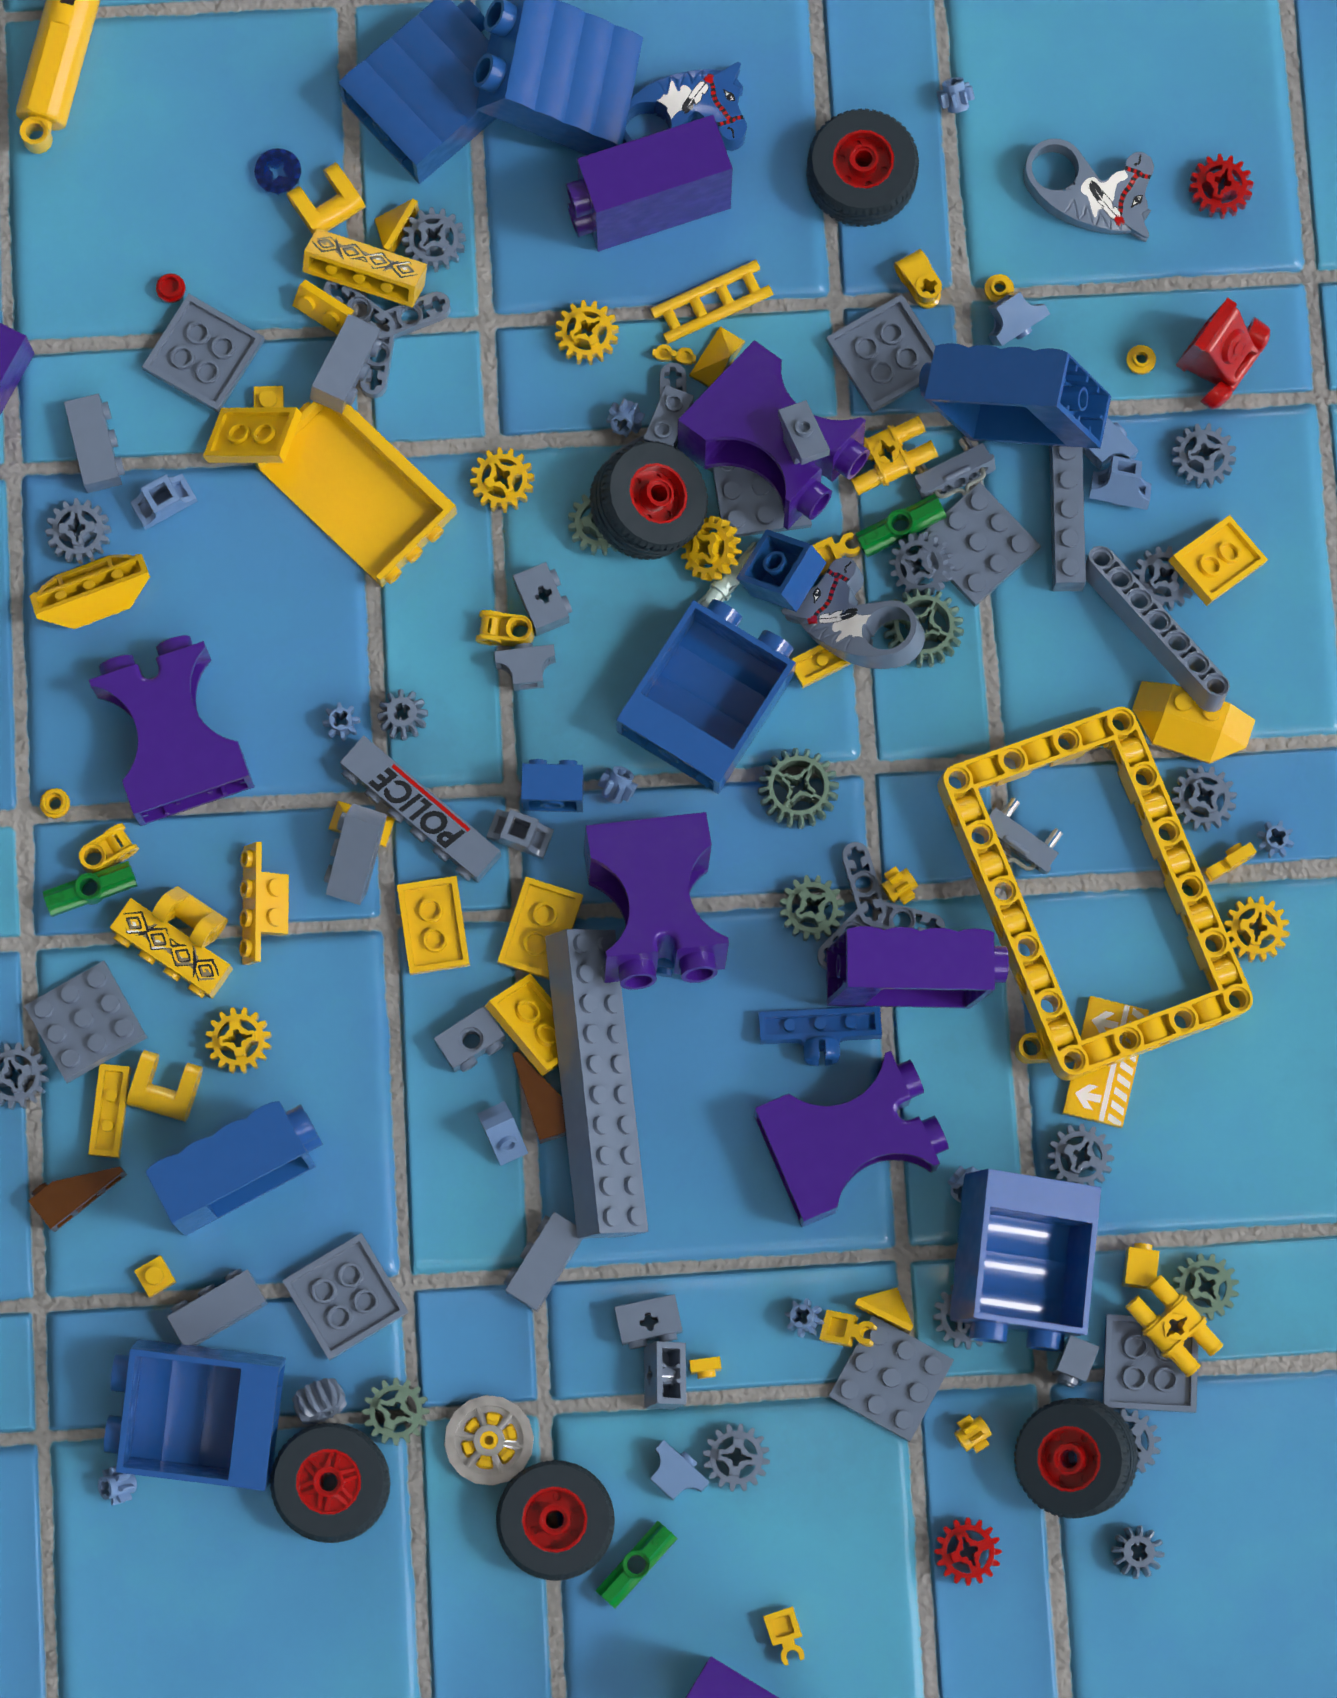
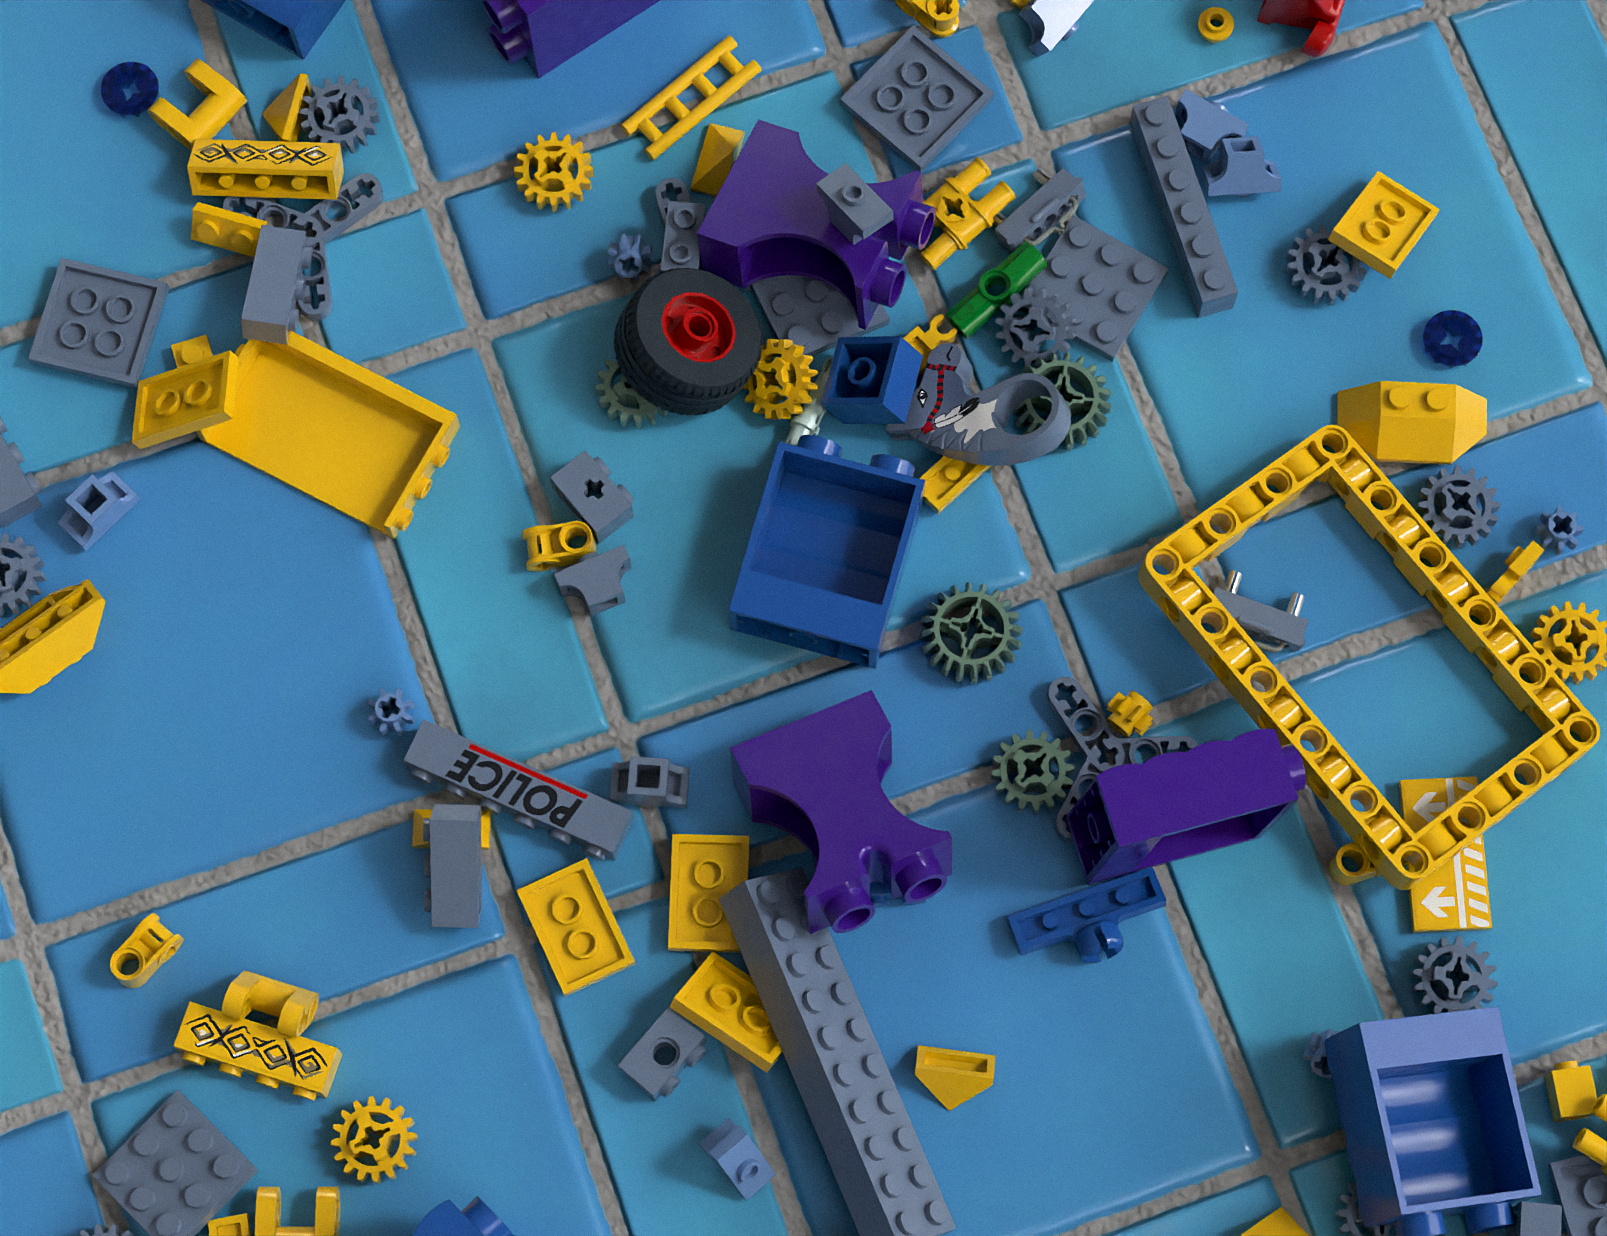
camera: 15 degrees left, 5 degrees down
(48, 797) = (57, 903): yellow plate -> none
(71, 896) = (113, 1020): green piece -> none
(170, 288) = (38, 258): red plate -> none
(177, 754) = (199, 808): dark purple brick -> none
(264, 903) = (357, 961): yellow bracket -> none
(414, 714) = (458, 668): sand blue gear -> none
(493, 486) = (504, 354): yellow gear -> none
(543, 1101) = (775, 1104): reddish brown slope -> none
(552, 786) = (673, 714): blue brick -> none
(617, 784) = (751, 691): medium blue gear -> none
(665, 354) = (655, 171): yellow piece -> none
(682, 1117) = (954, 1074): none -> yellow slope
(828, 1145) = (1140, 1057): dark purple brick -> none
(1016, 395) = (1090, 92): blue brick -> none
(1144, 614) = (1341, 323): sand blue beam -> none
(1202, 444) = (1322, 126): sand blue gear -> none
(1252, 654) = (1457, 324): none -> clear blue gear

